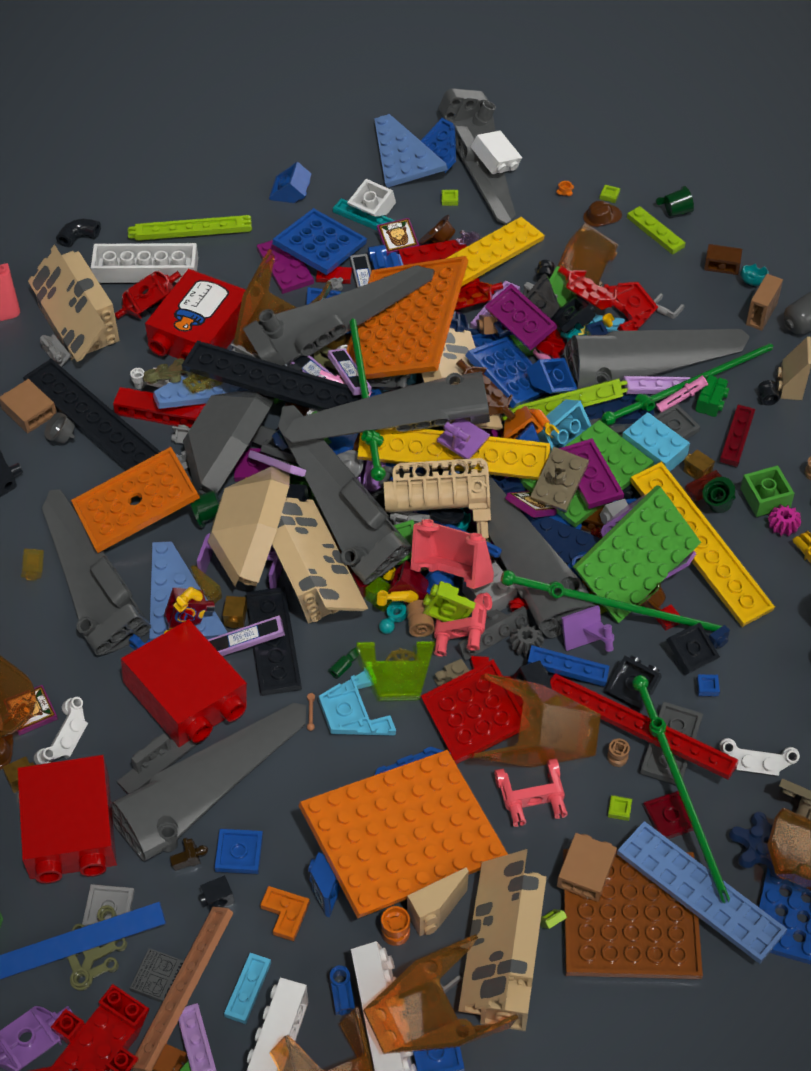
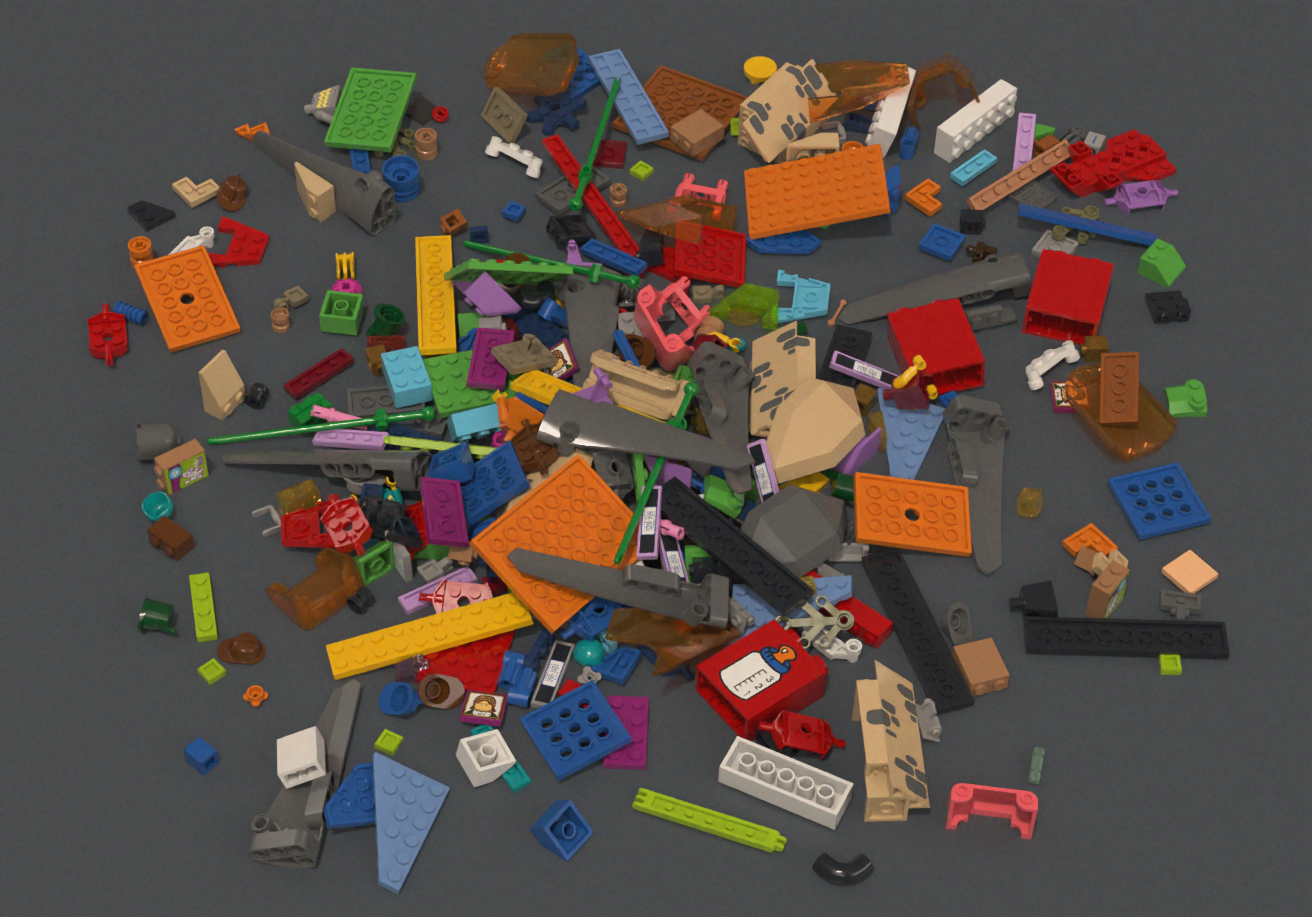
camera: 155 degrees left, 5 degrees down
(446, 604) = (688, 307): lime plate -> none
(457, 218) = (399, 699): none -> blue piece
(566, 138) = (201, 756): none -> blue brick
(584, 1036) = (759, 69): none -> yellow tile
(657, 318) = (298, 496): none -> clear yellow brick
(692, 648) = (507, 231): black hinge -> none
(752, 639) = (455, 220): none -> dark orange brick

